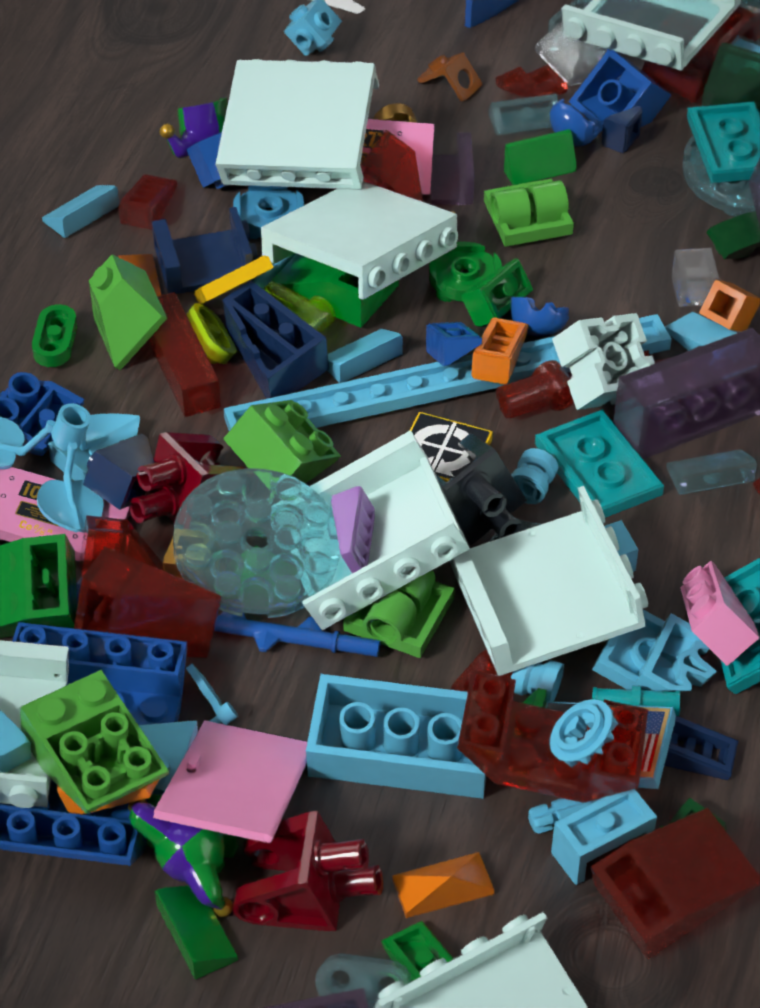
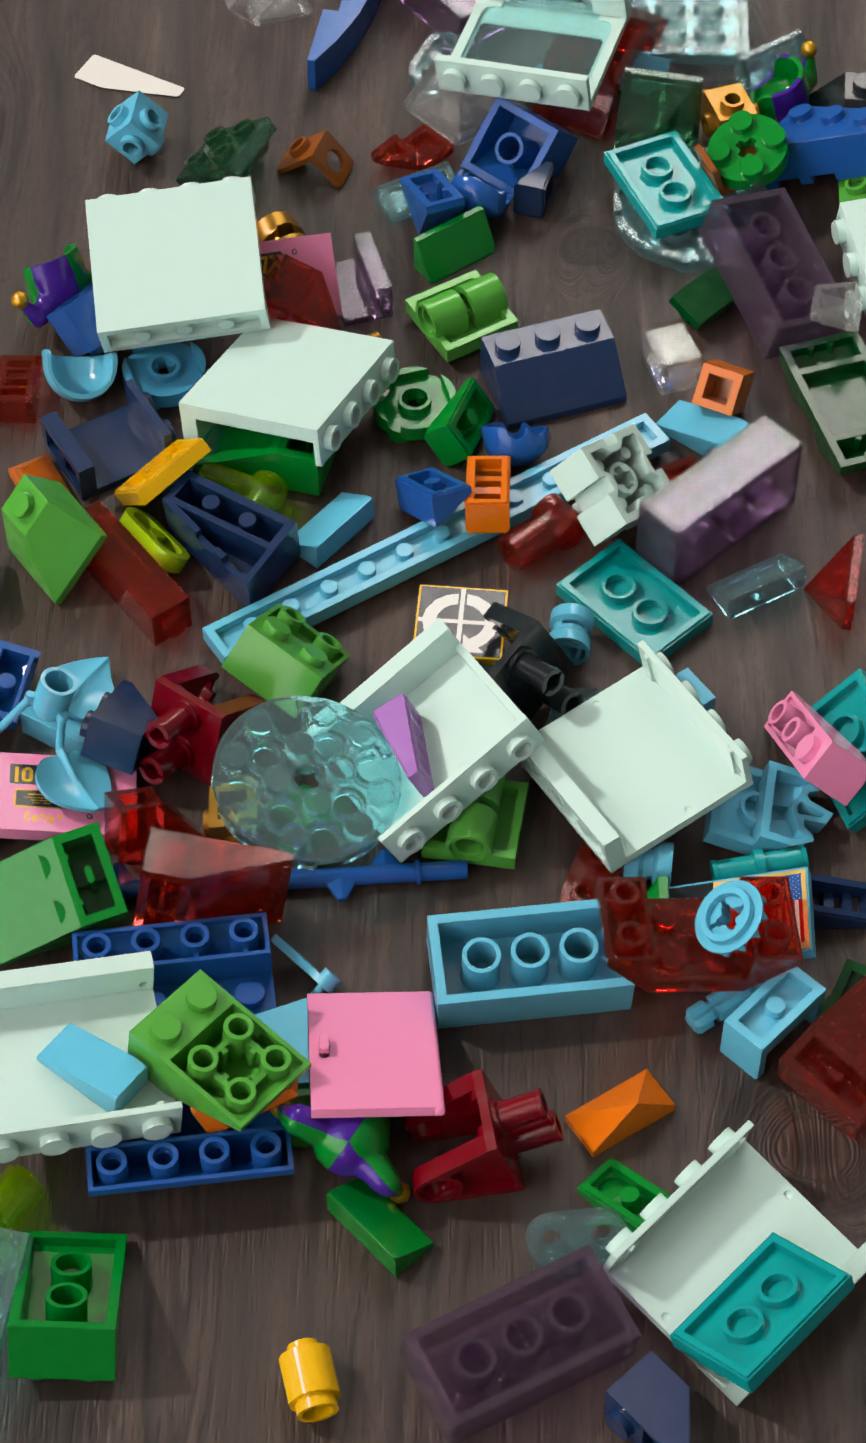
camera: 15 degrees left, 5 degrees up
(195, 200) = (79, 377): none -> medium azure helmet
(389, 55) = (229, 152): none -> clear green plate
(532, 117) = (431, 199): none -> blue slope
(590, 265) = (552, 369): none -> dark blue slope

